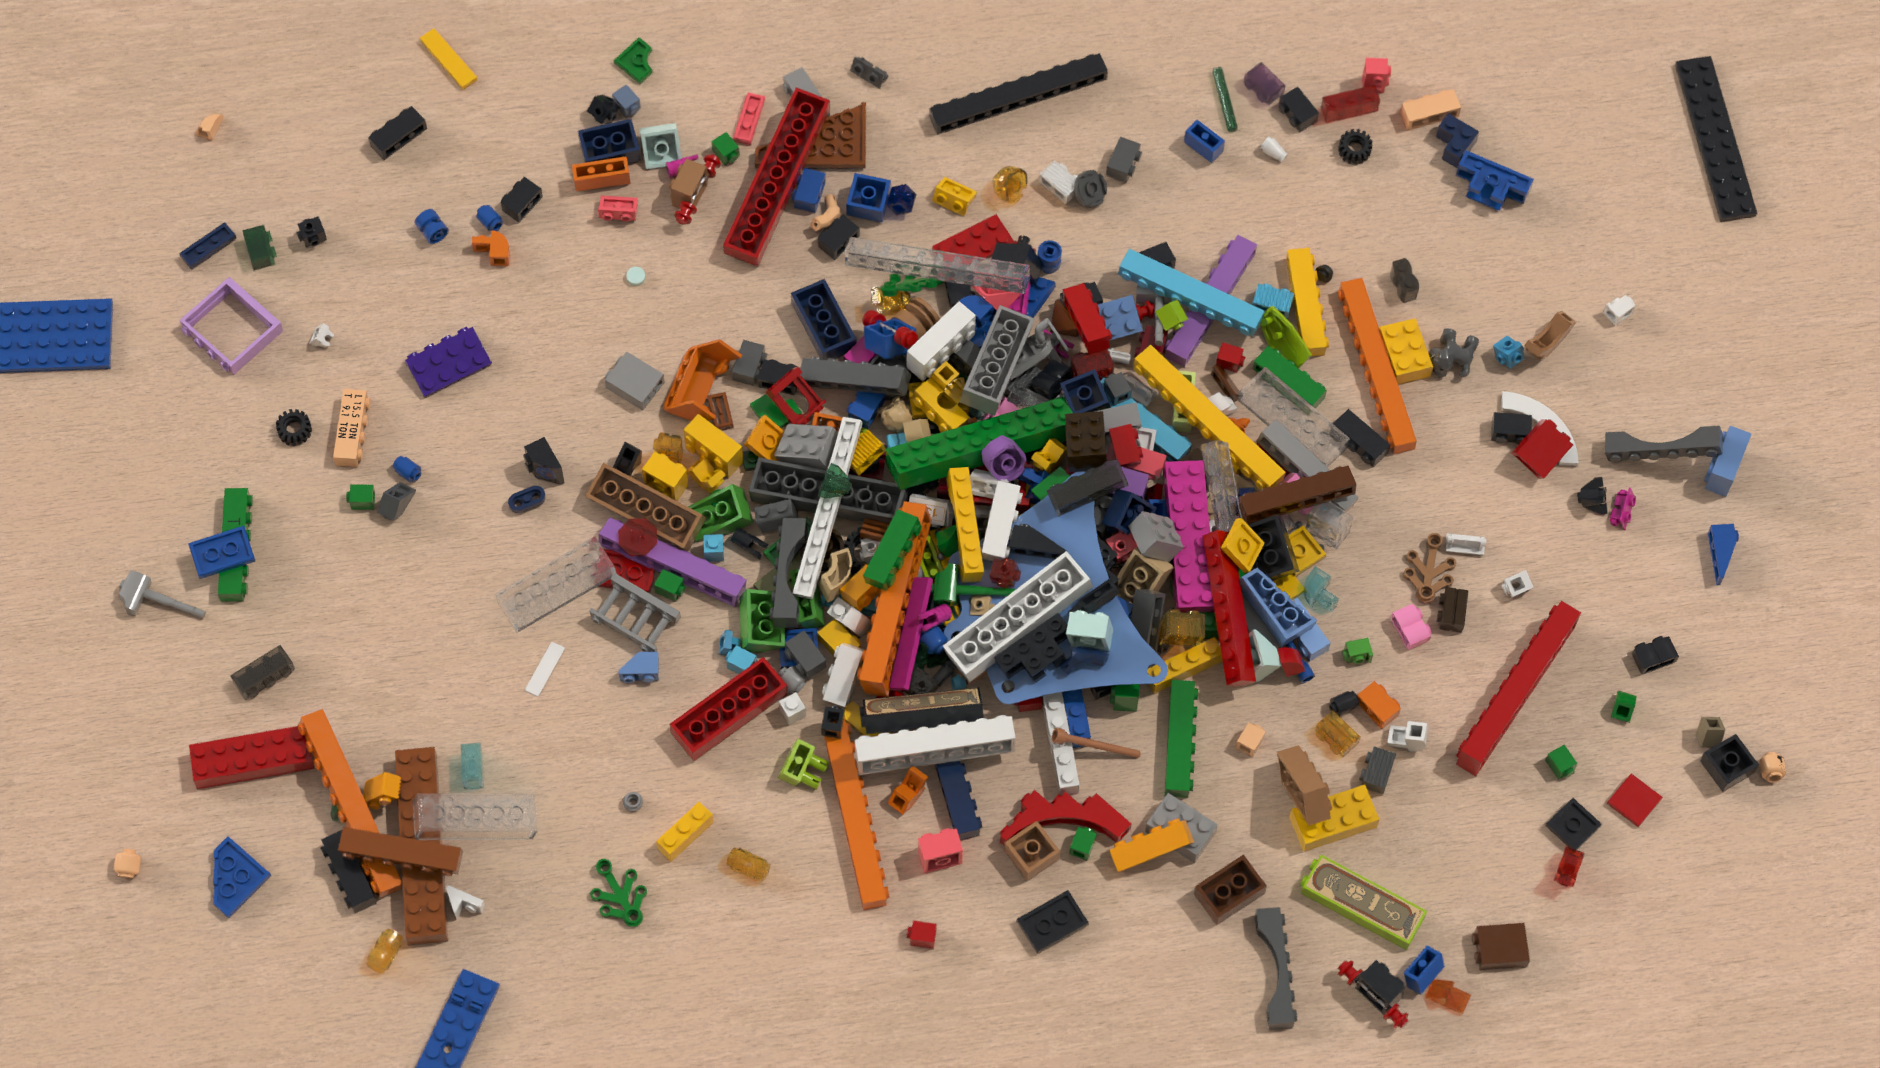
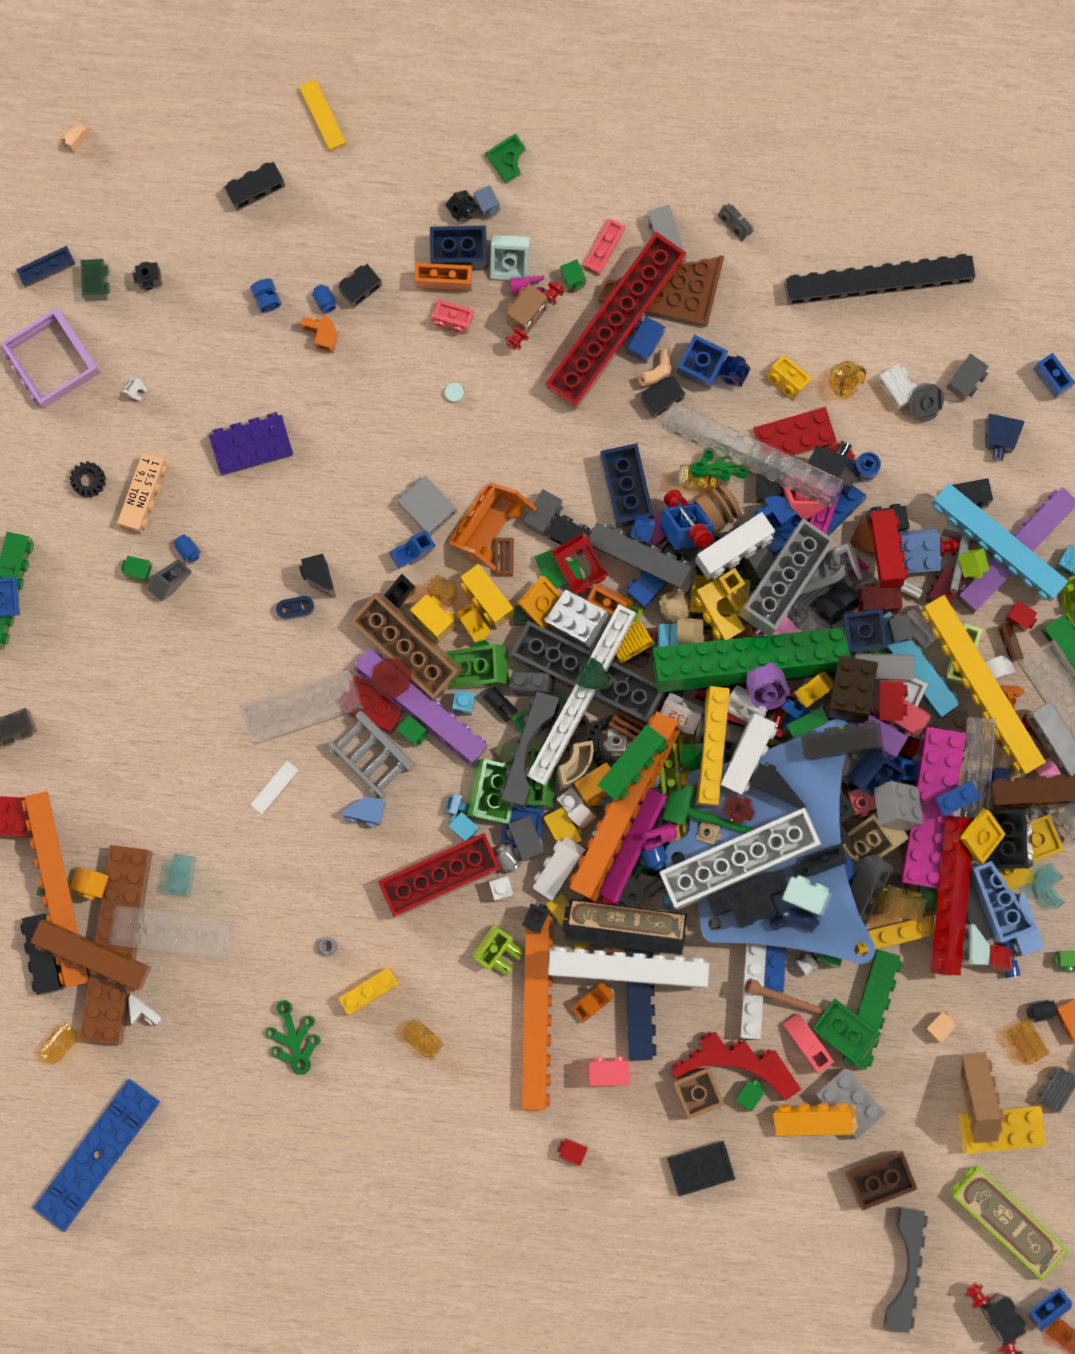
camera: 20 degrees right, 15 degrees up
(632, 422) = (413, 551): none -> blue brick
(849, 350) = (642, 528): none -> blue brick
(1107, 711) = (806, 964): none -> white wheel
(1128, 783) = (808, 1043): none -> coral slope
(1160, 760) = (846, 1031): none -> green tile
(1169, 203) = (1001, 434): none -> dark blue torso
(1209, 516) = (956, 798): none -> blue brick

